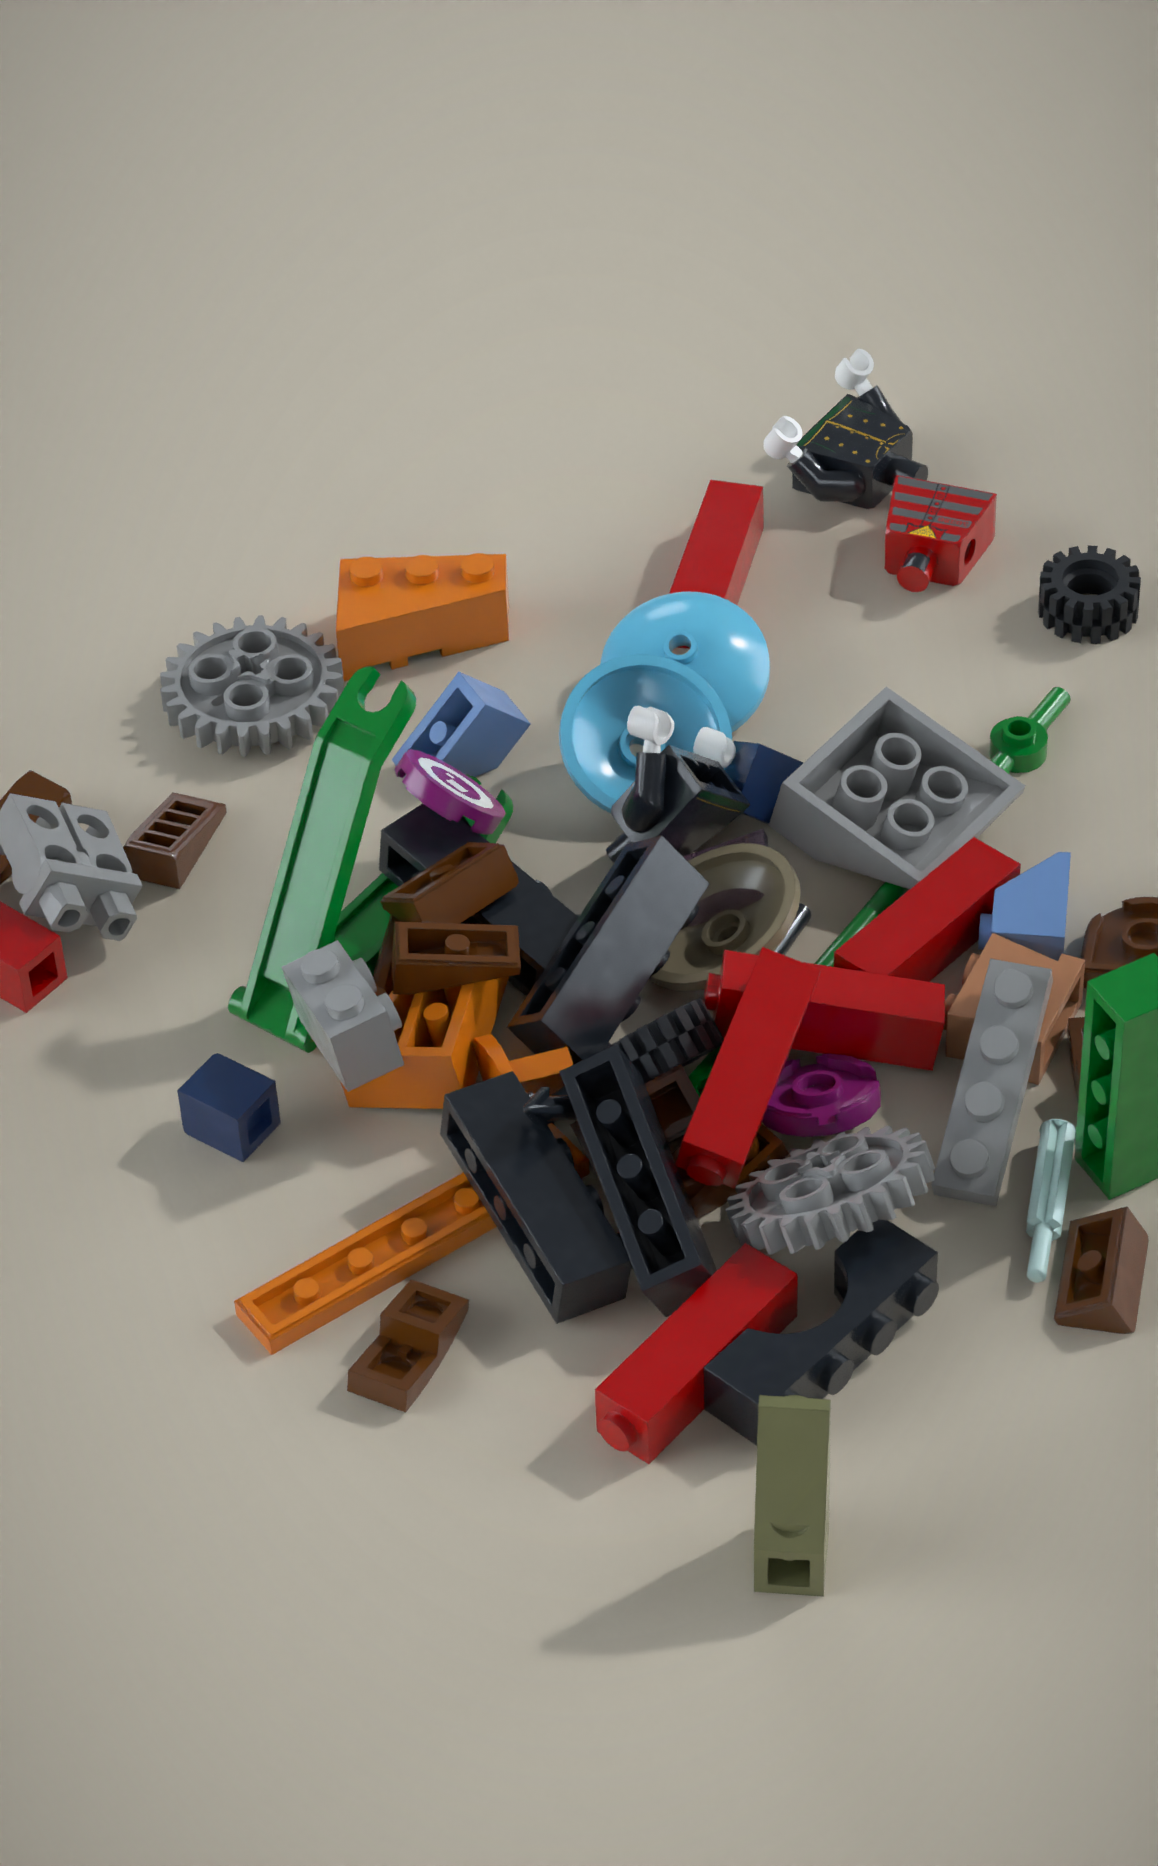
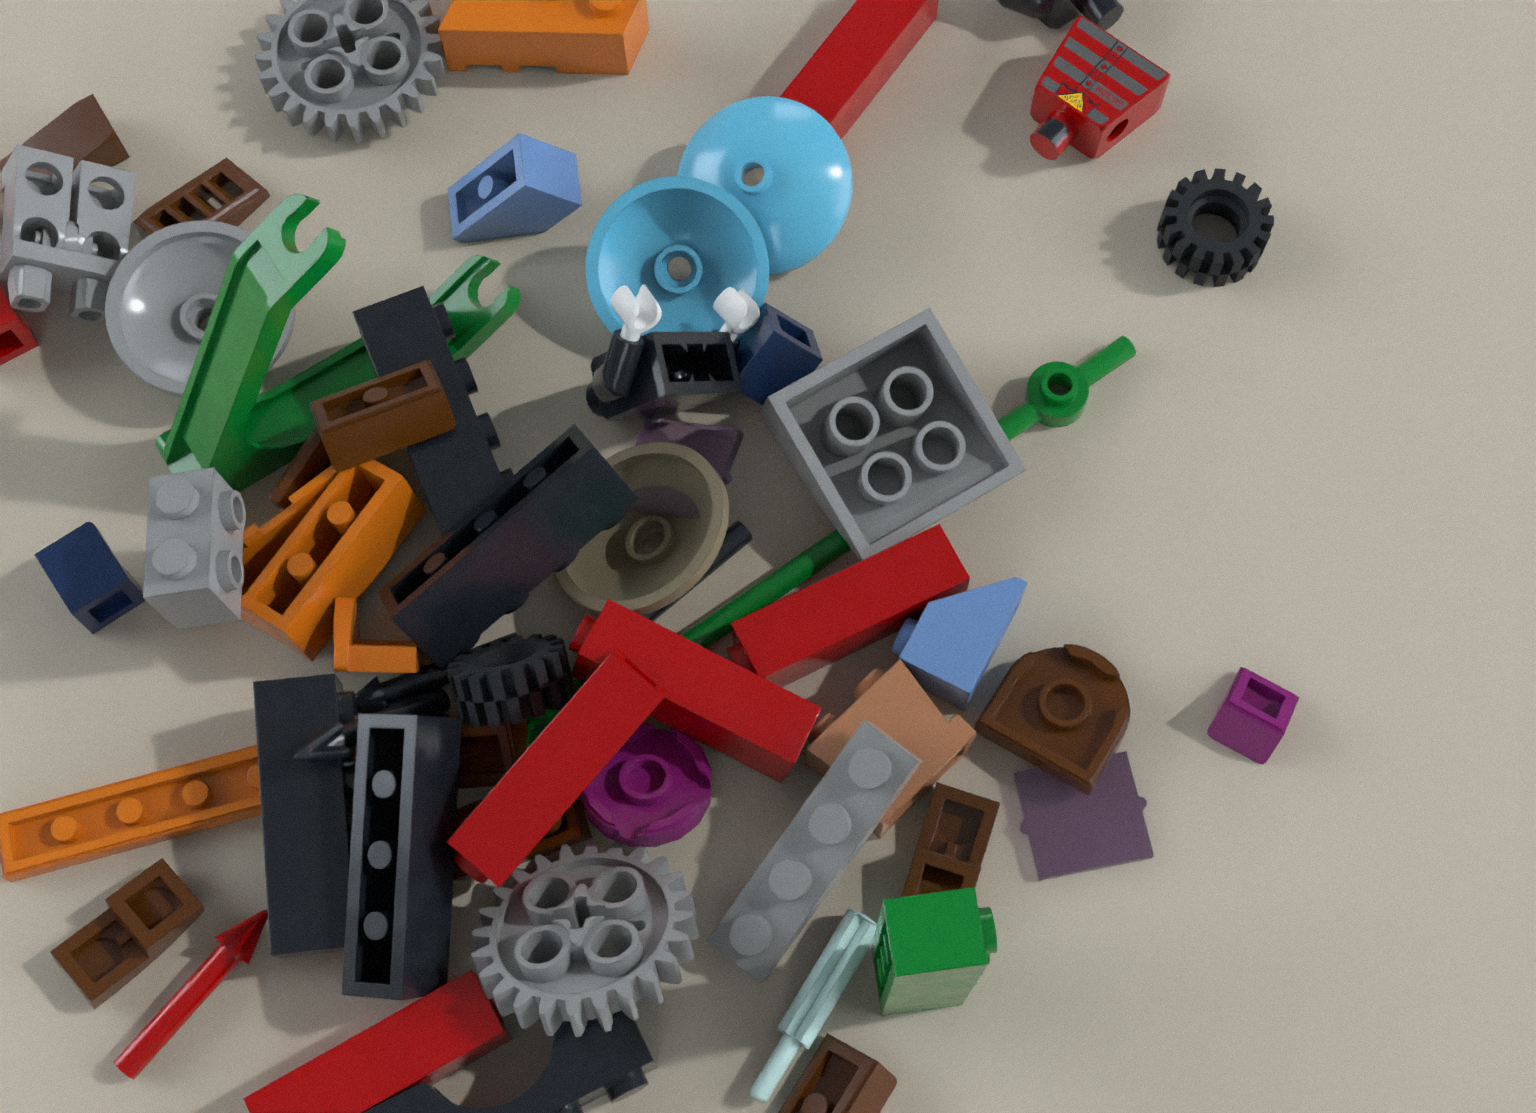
camera: 20 degrees right, 25 degrees up
(212, 881) = (165, 294): none -> light grey dish
(449, 791) = (436, 289): magenta tile -> none
(451, 955) = (340, 505): reddish brown slope -> none
(512, 1326) = (235, 945): none -> red piece

